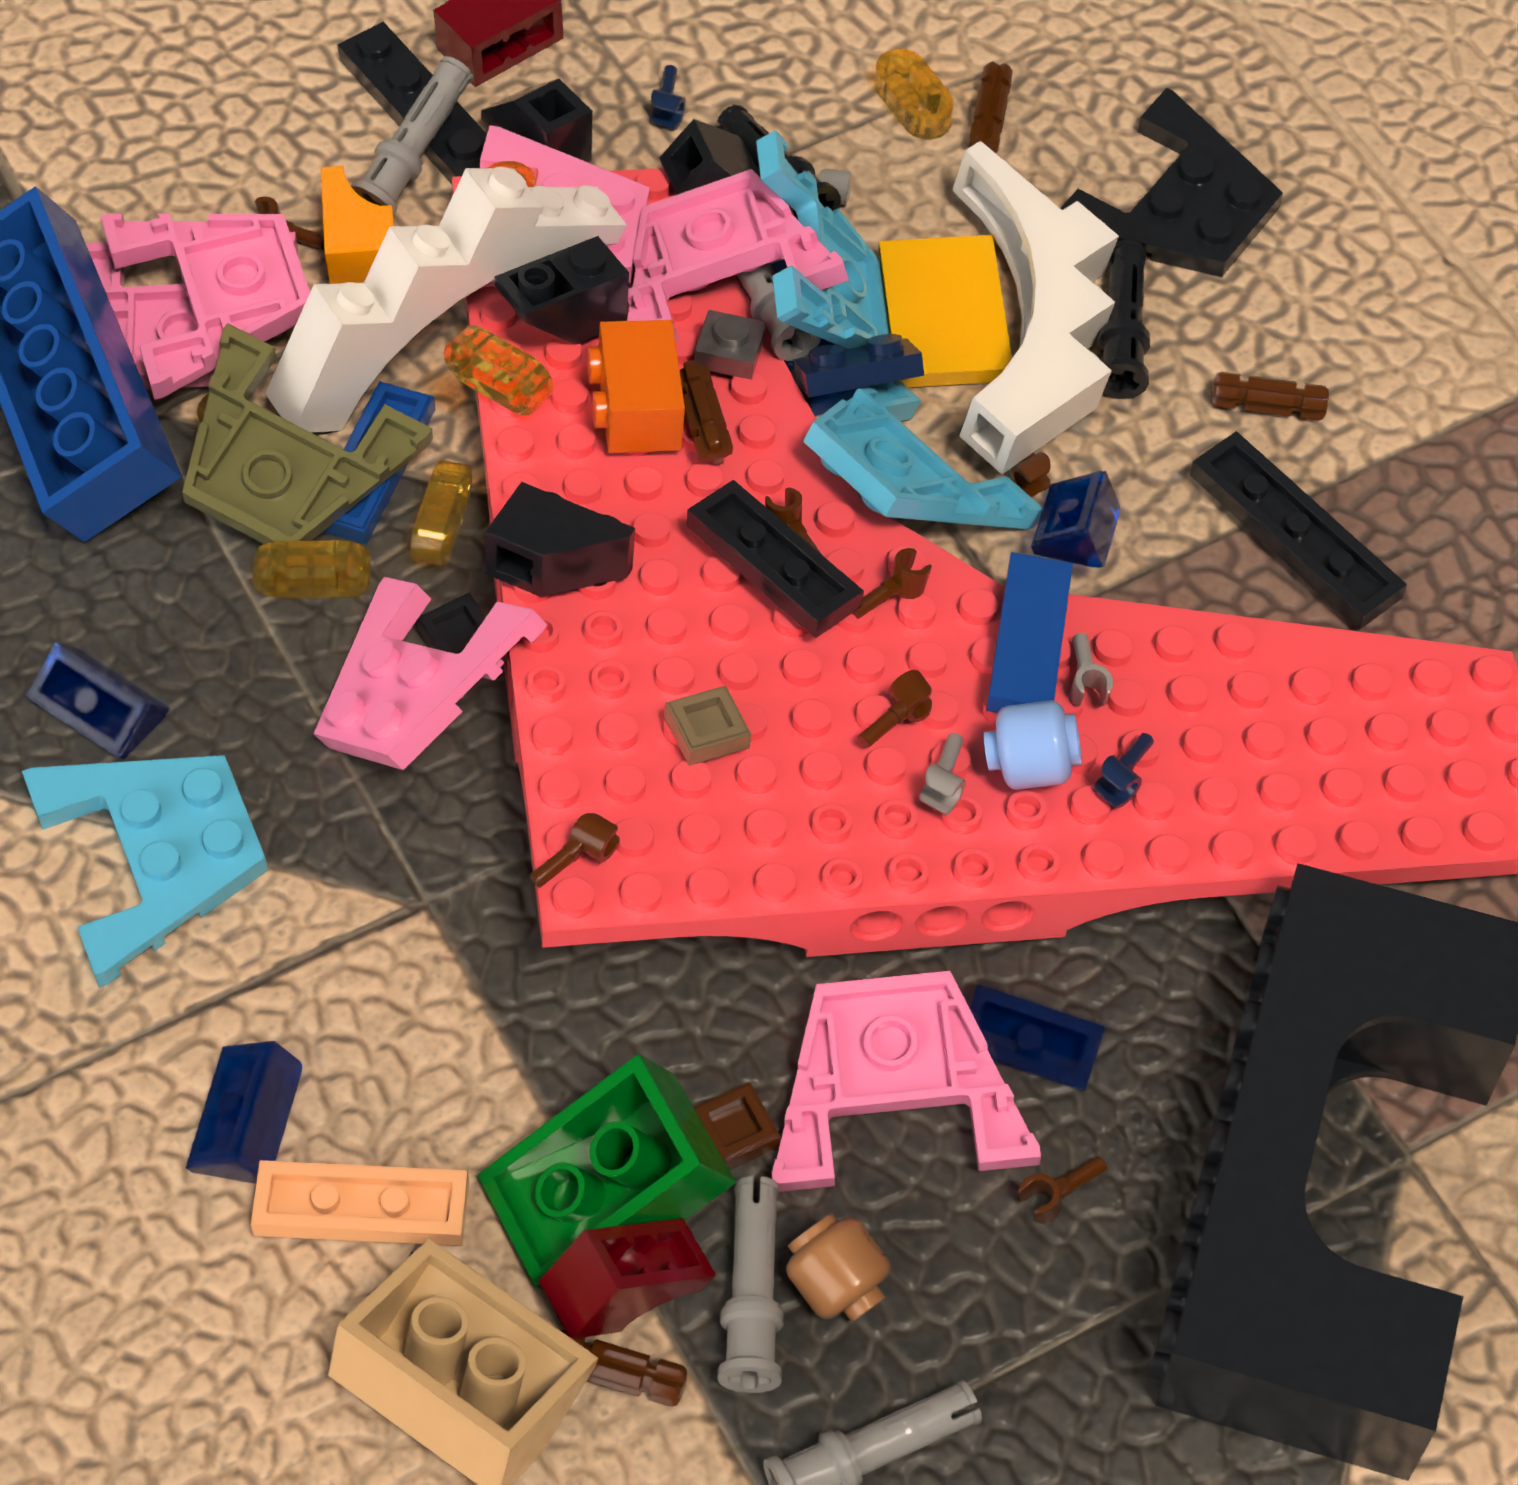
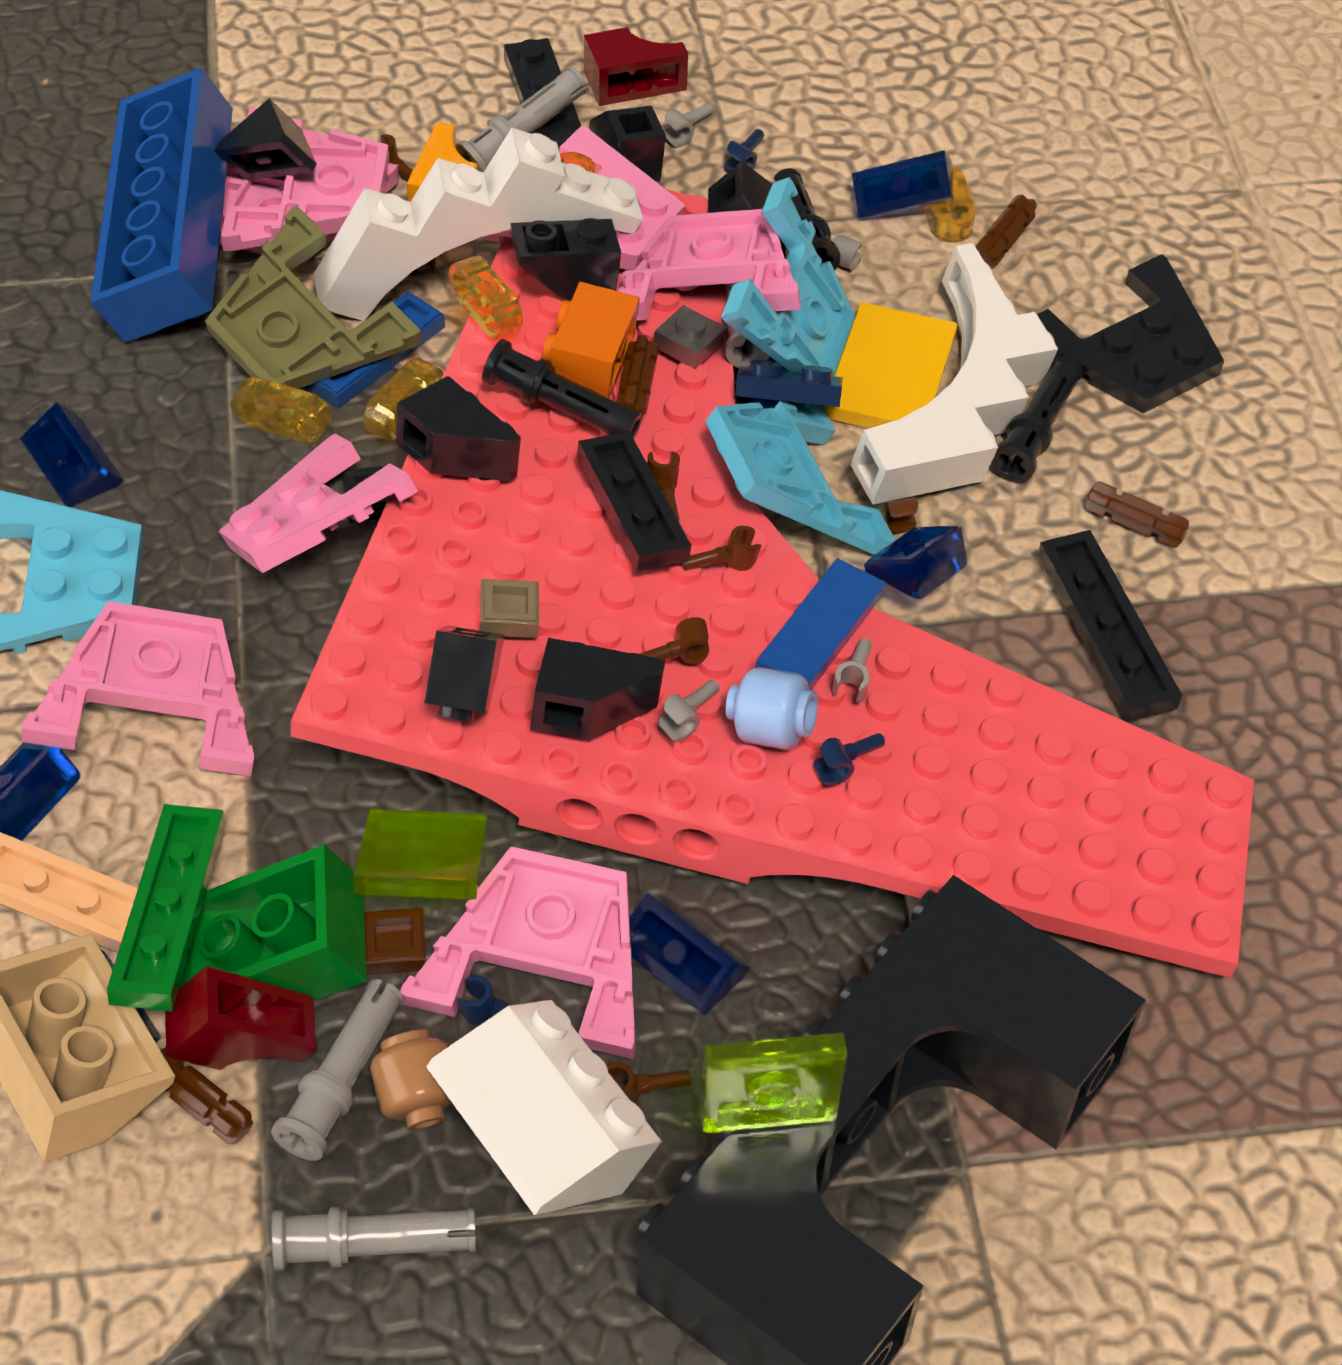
camera: 20 degrees right, 5 degrees down
(153, 259) = (267, 145): none -> black slope
(332, 912) = (155, 665): none -> bright pink wing
(494, 1180) = (166, 908): none -> green plate
(582, 82) = (682, 125): none -> light grey hand
(589, 835) = (360, 655): reddish brown hand -> none
(607, 454) = (539, 383): none -> black pin
(707, 813) = (463, 671): none -> black slope
(724, 1024) = (421, 854): none -> clear neon green tile
(842, 788) = (592, 689): none -> black slope
(863, 90) = (903, 185): none -> clear blue slope
(874, 1161) = (486, 1007): none -> dark blue hand
(992, 1248) = (545, 1107): none -> white slope
(1247, 1149) = (772, 1082): none -> clear neon green tile

